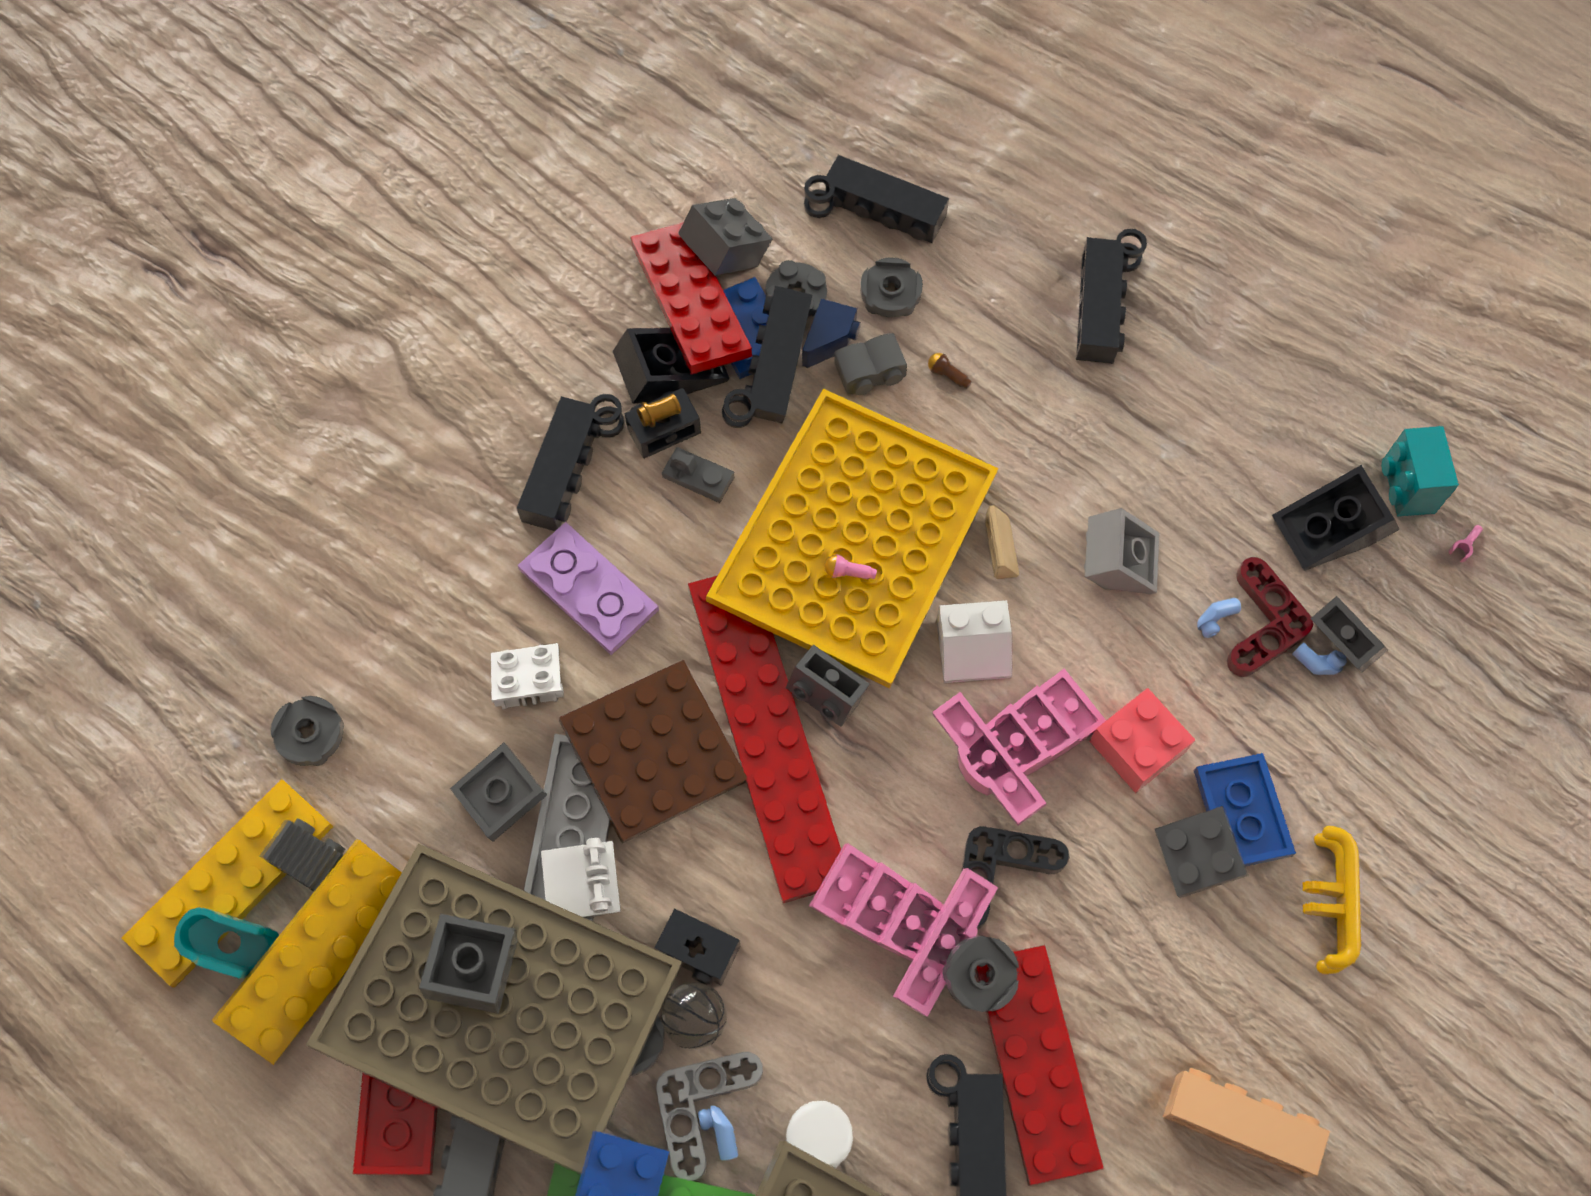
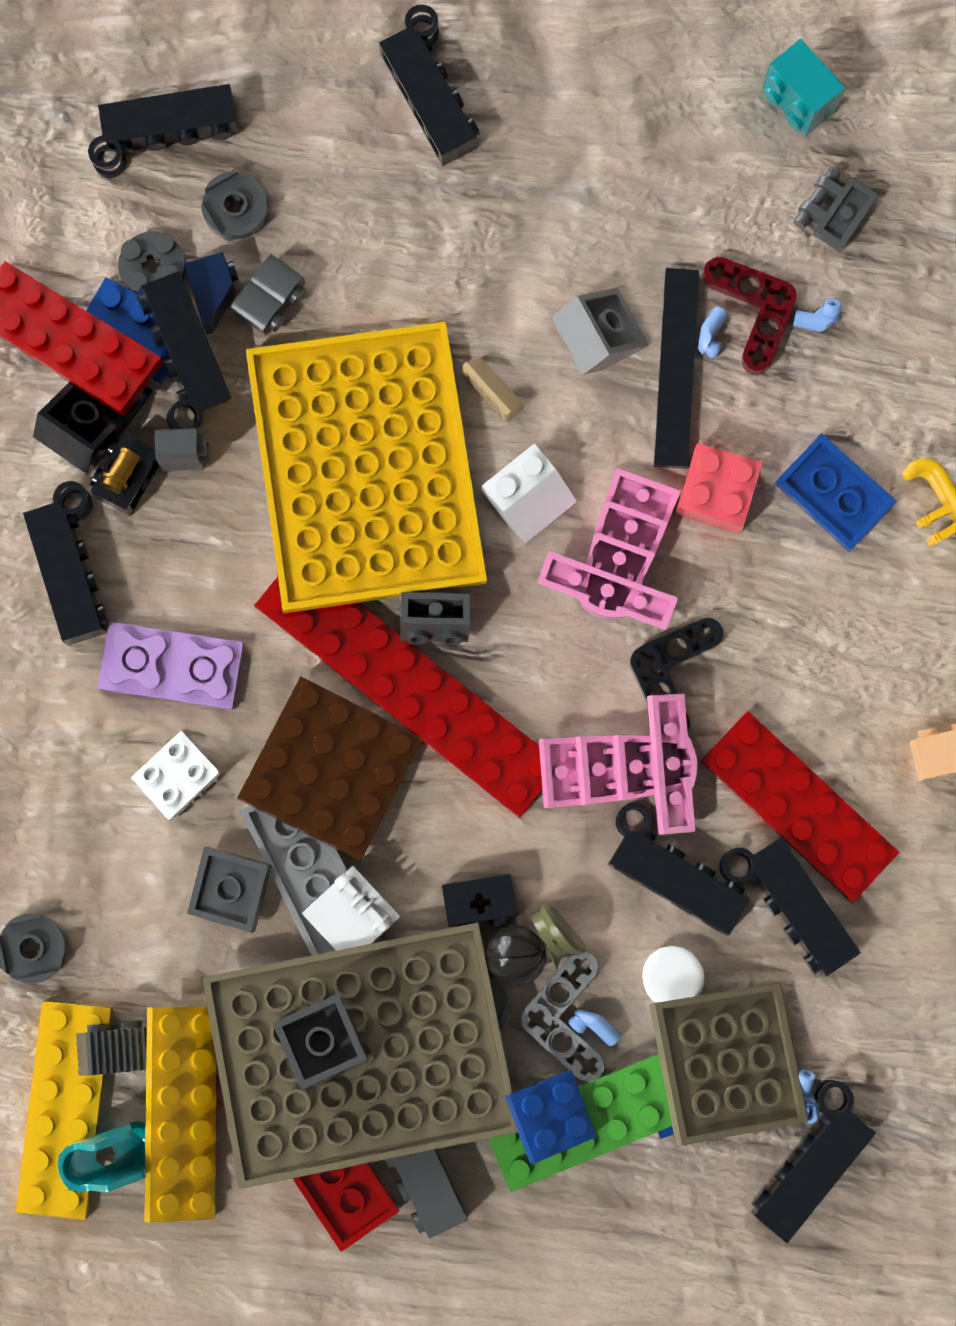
camera: 30 degrees left, 15 degrees up
(698, 474) = (190, 499): dark grey hinge -> none
(717, 427) = (181, 449): none -> dark grey brick
(725, 236) = (54, 258): dark grey brick -> none
(743, 1022) = (557, 934): none -> olive piece
(837, 566) = (374, 509): bright pink piece -> none
(881, 1048) = (675, 879): none -> black hinge
(940, 364) = (328, 253): reddish brown piece -> none
(1002, 973) = (699, 780): dark grey plate -> none
(1167, 625) = (676, 368): none -> black tile
(1201, 852) = (822, 551): dark grey plate -> none
(1336, 520) = (758, 178): black slope -> none
(1349, 634) = (830, 280): dark grey brick -> none
(1394, 593) = (845, 213): none -> dark grey plate
(1466, 544) = (878, 124): bright pink hand -> none

